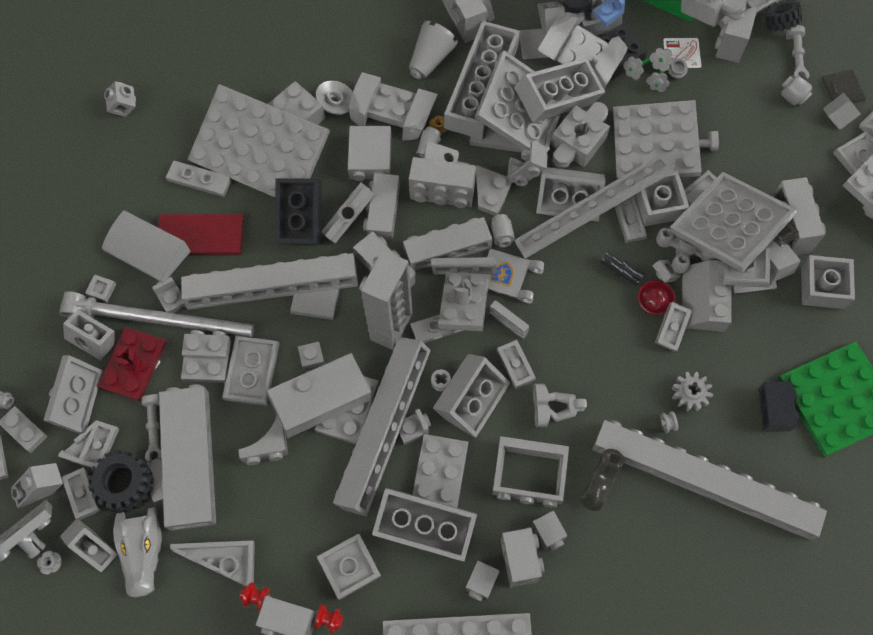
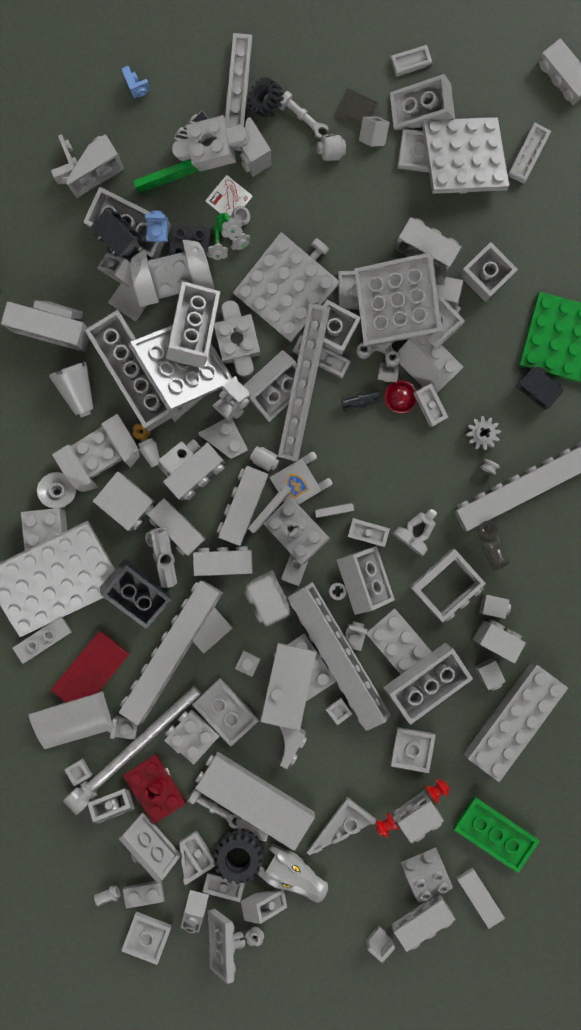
camera: 50 degrees left, 20 degrees up
(331, 467) = (339, 711): none -> light grey plate

